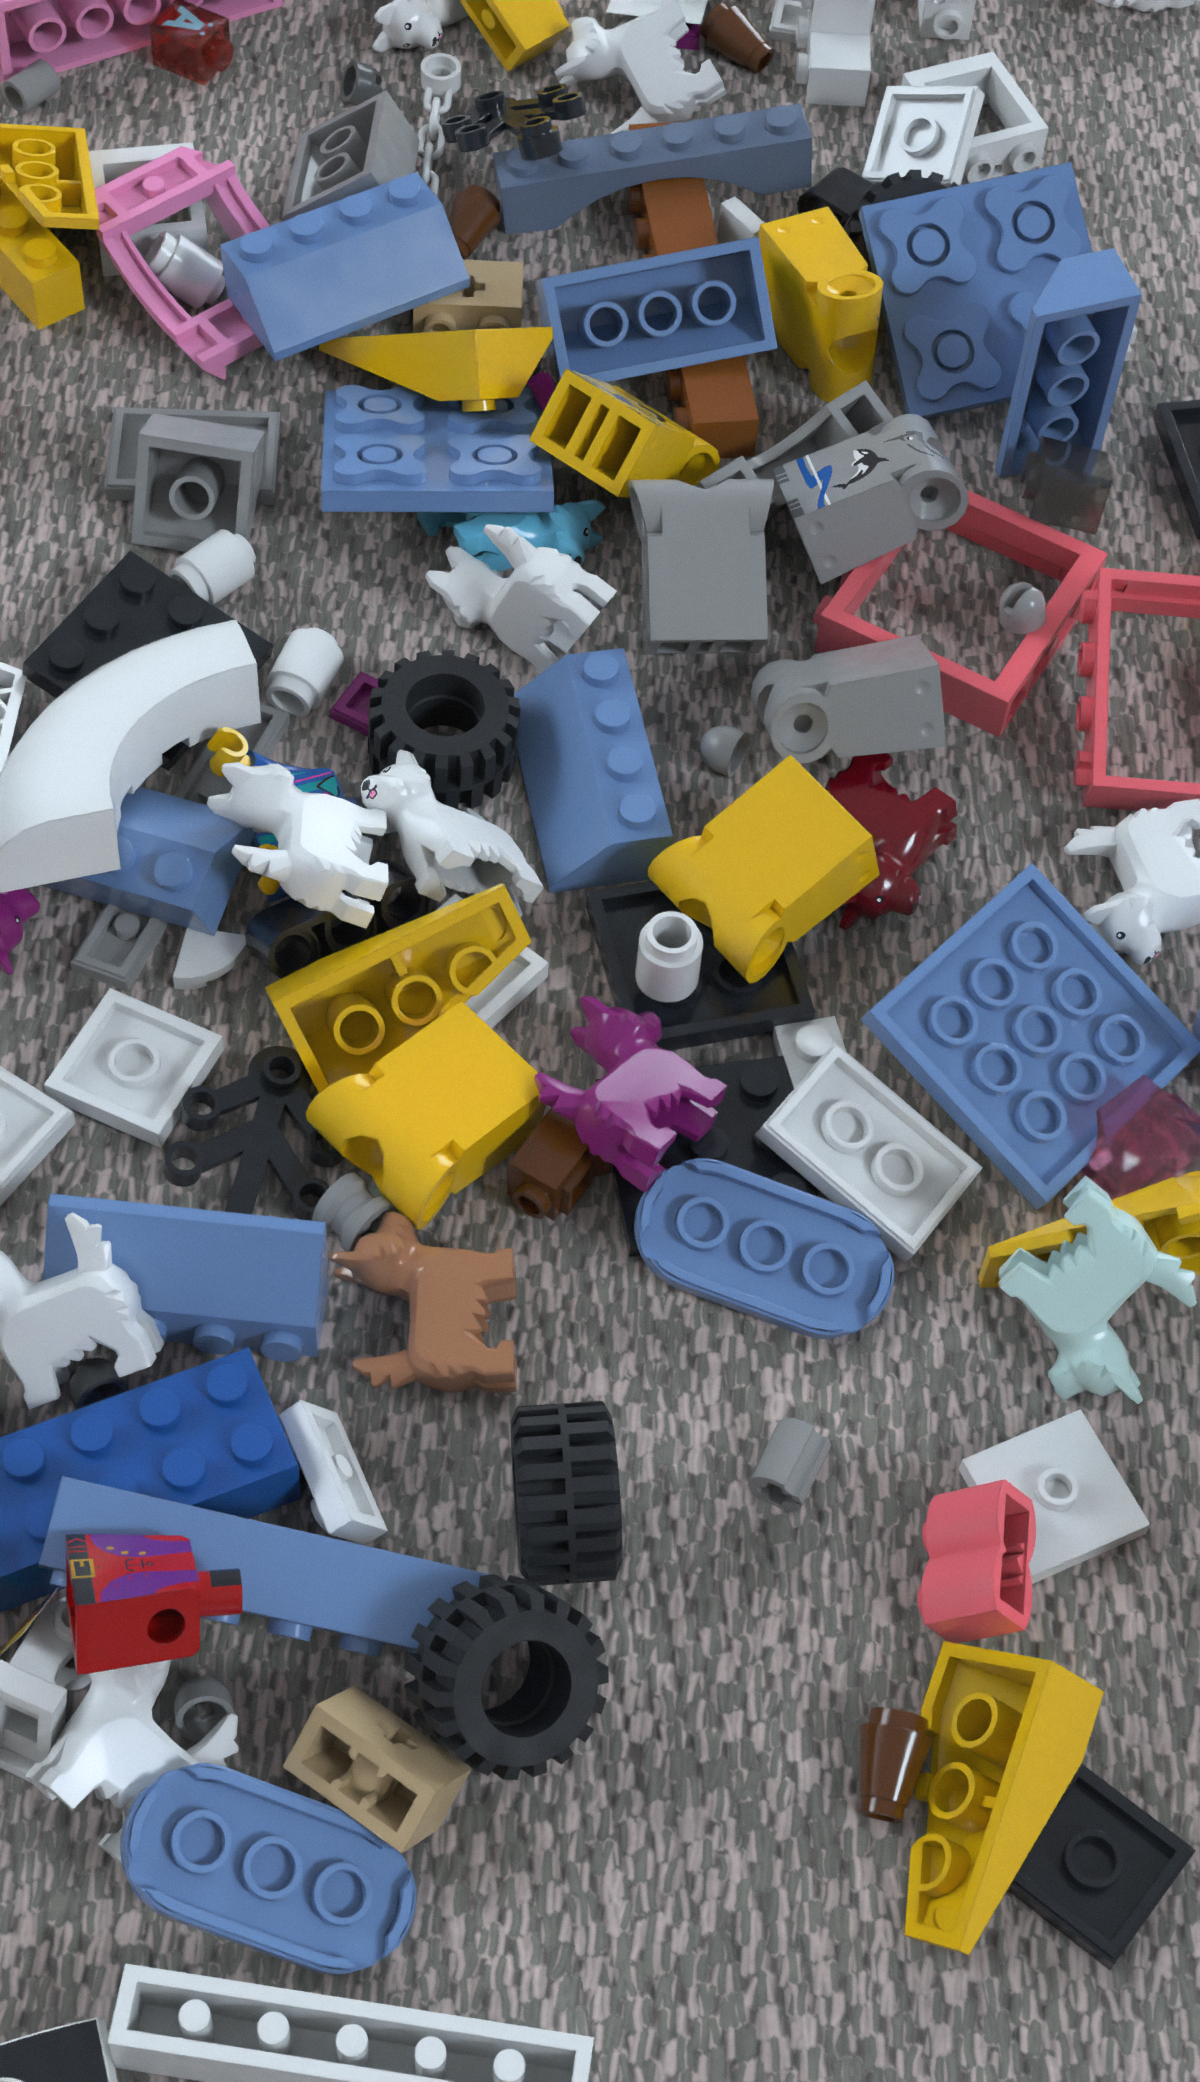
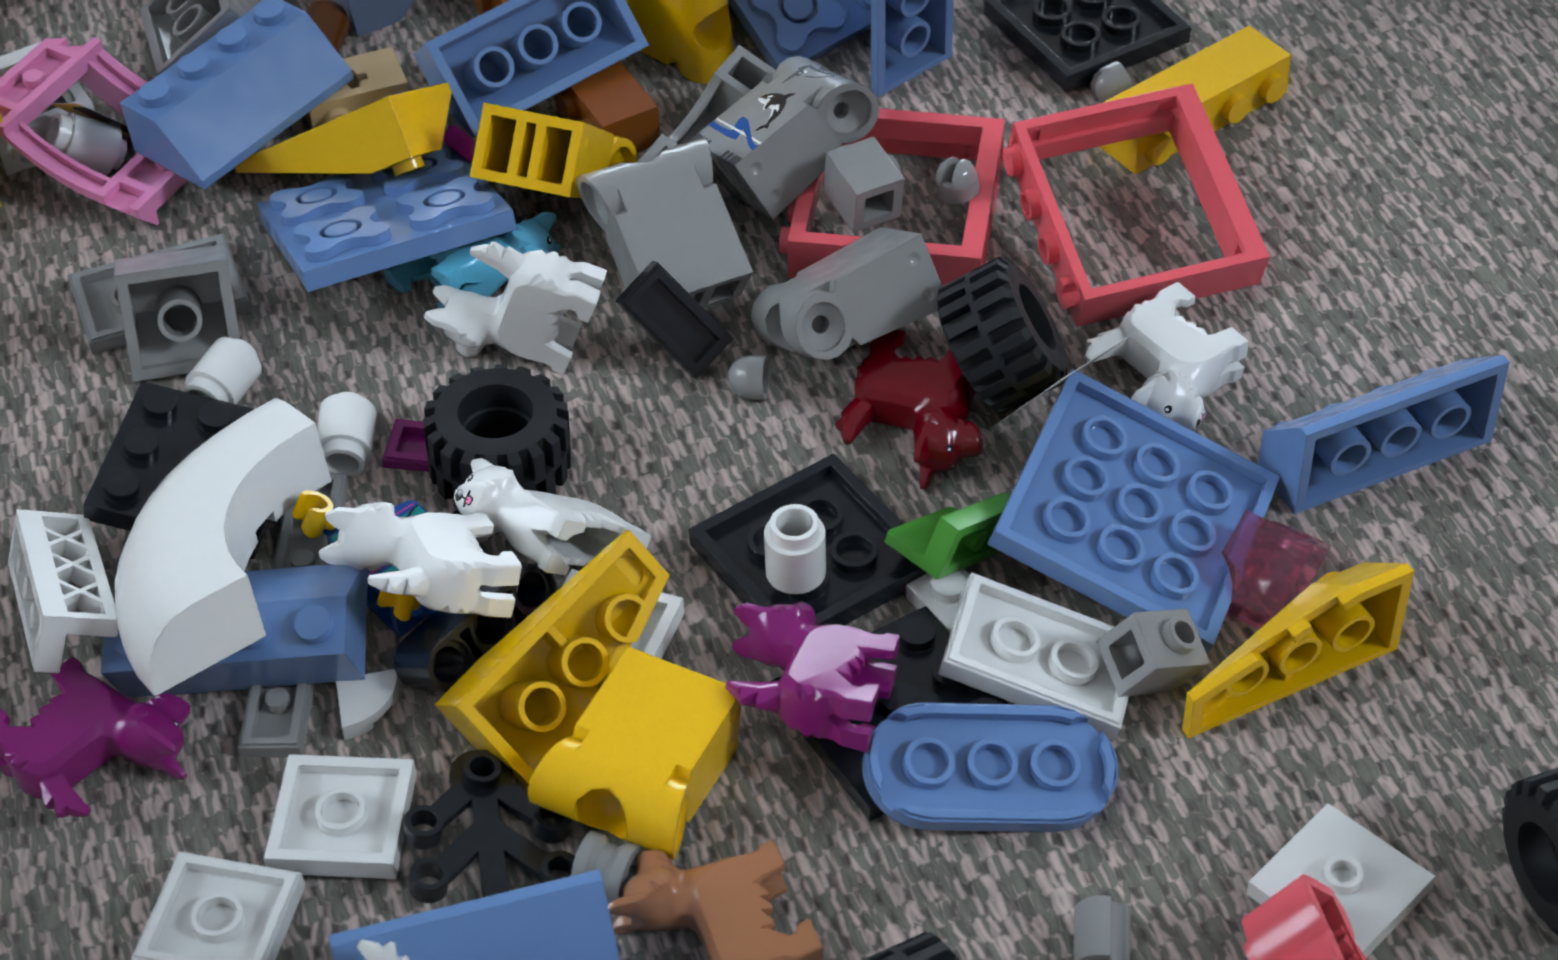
camera: 15 degrees left, 10 degrees down
(195, 240) = (85, 111): none -> sticker
(552, 1169) = (771, 765): reddish brown window -> none
(590, 773) = (649, 434): medium blue slope -> none
(668, 663) = (674, 319): none -> black tile
(768, 867) = (847, 446): yellow piece -> none
(831, 993) = (949, 537): none -> bright green panel
(922, 580) = (864, 183): none -> light grey brick
(978, 1190) = (1153, 652): none -> light grey brick
(984, 797) = (1001, 334): none -> black tyre
(1022, 868) = (1079, 369): none -> white sticker
(1066, 484) = (944, 78): clear smoke brick -> none
(1086, 1285) = (1289, 694): light aqua animal -> none

